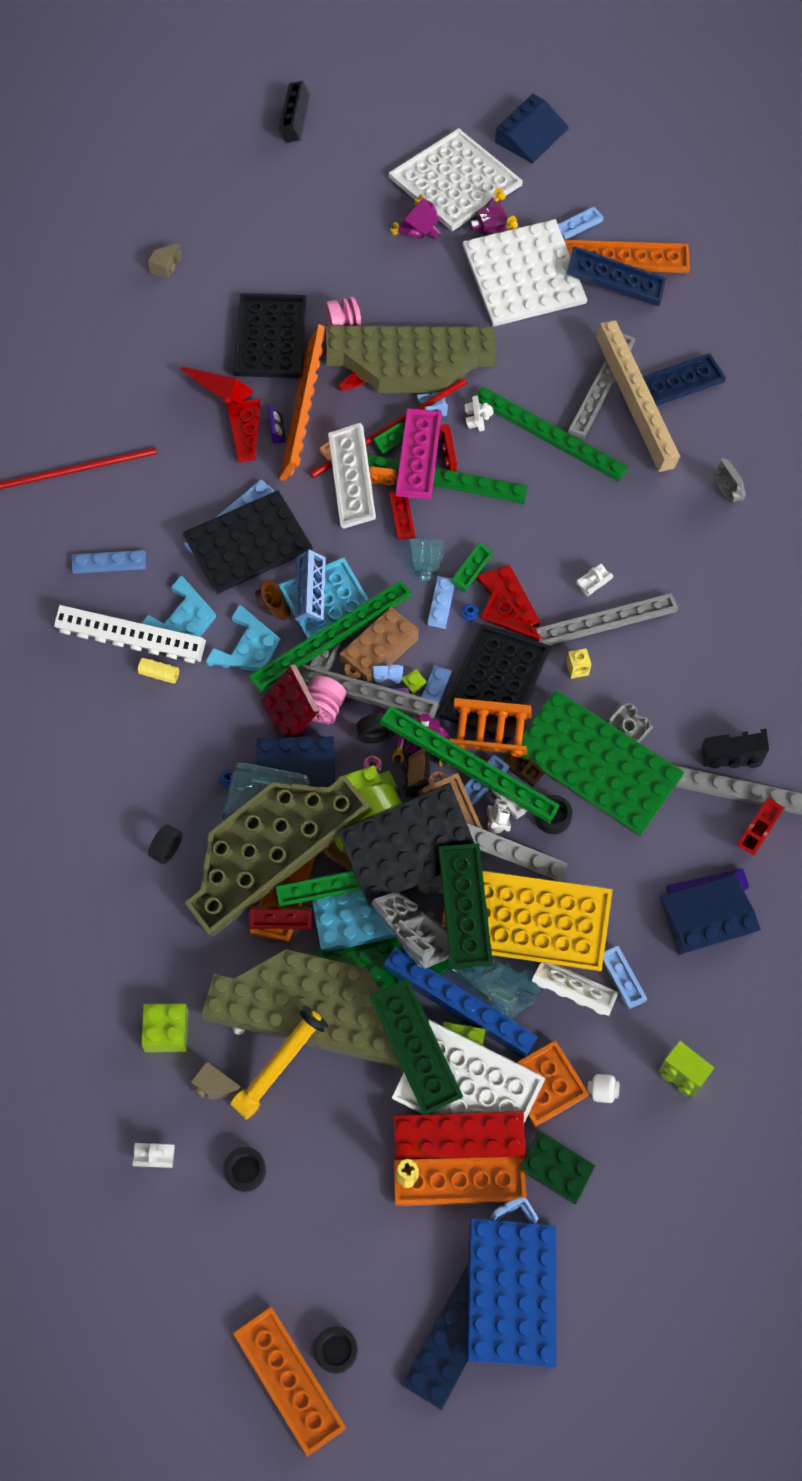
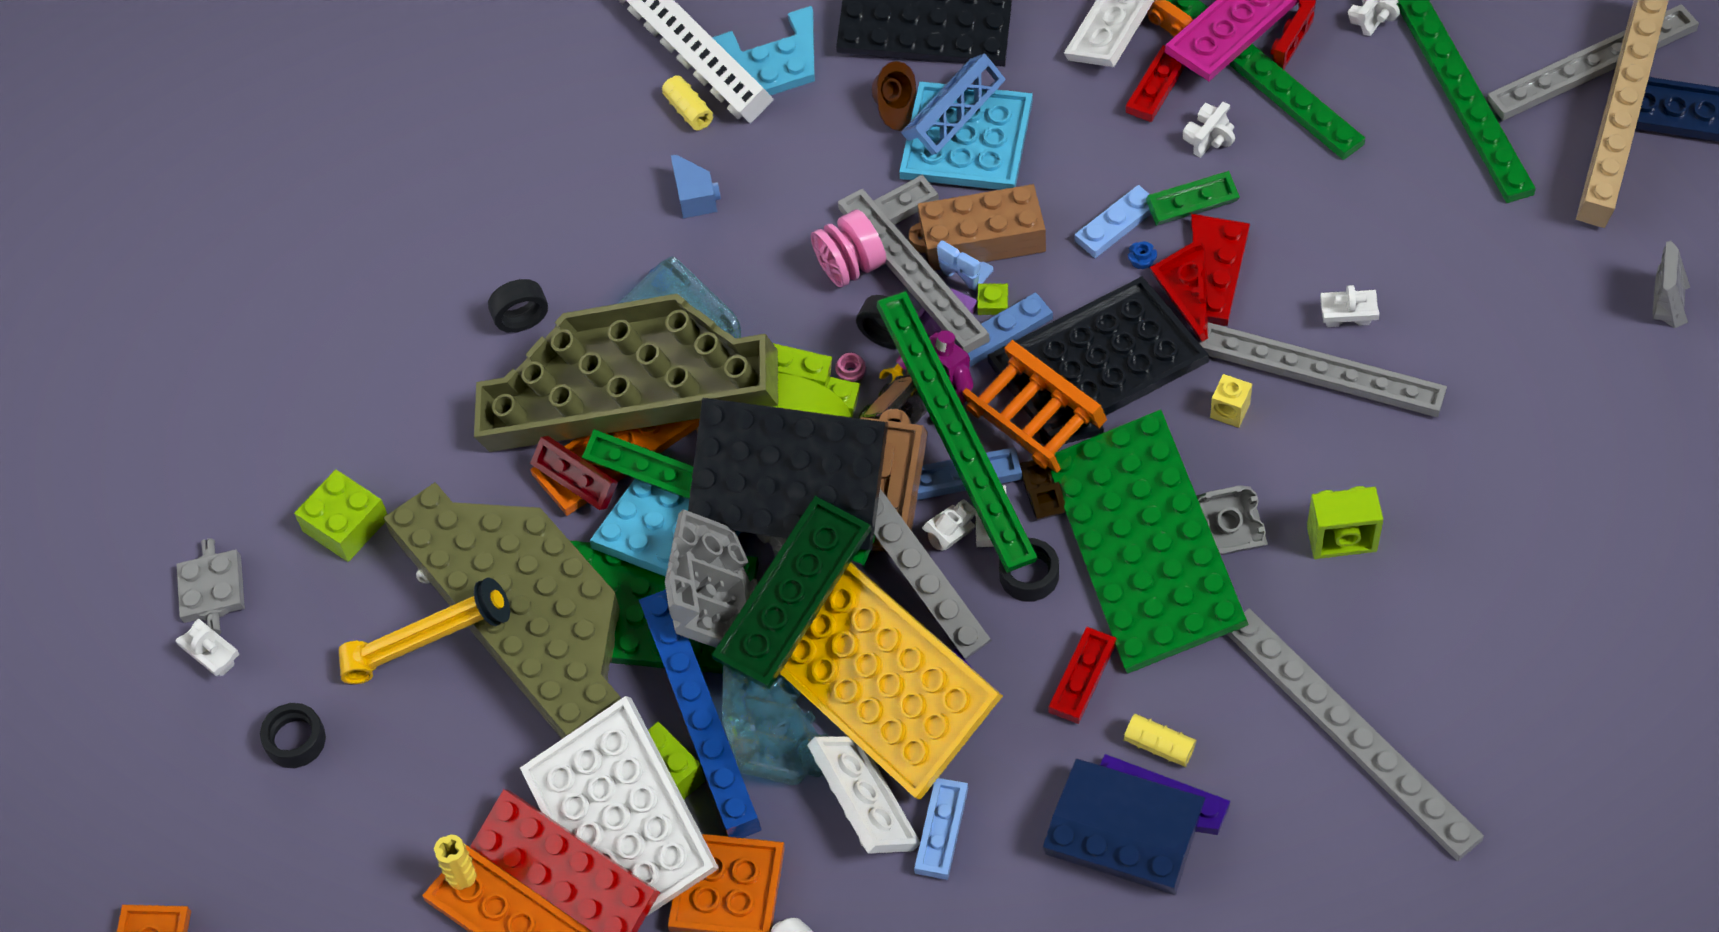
camera: 45 degrees right, 5 degrees down
(119, 1119) = (210, 586): none -> light grey plate
(203, 716) = (694, 188): none -> medium blue slope
(213, 1083) = (340, 612): dark tan slope -> none
(254, 648) = (827, 143): medium azure wing -> none
(290, 704) = (799, 229): dark red plate -> none
(301, 755) = (764, 299): dark blue slope -> none
(331, 635) = (927, 177): green plate -> none
(416, 1046) = (584, 716): dark green plate -> none
(426, 556) = (1143, 152): clear light blue torso -> none
(447, 517) = (1214, 132): none -> white hips
(623, 852) = (1082, 675): none -> red plate
(684, 692) = (1344, 522): none -> lime brick
(687, 860) = (1160, 740): none -> light yellow axle
(735, 751) = (1353, 642): black wedge -> none
(760, 826) = (1296, 767): red arch -> none

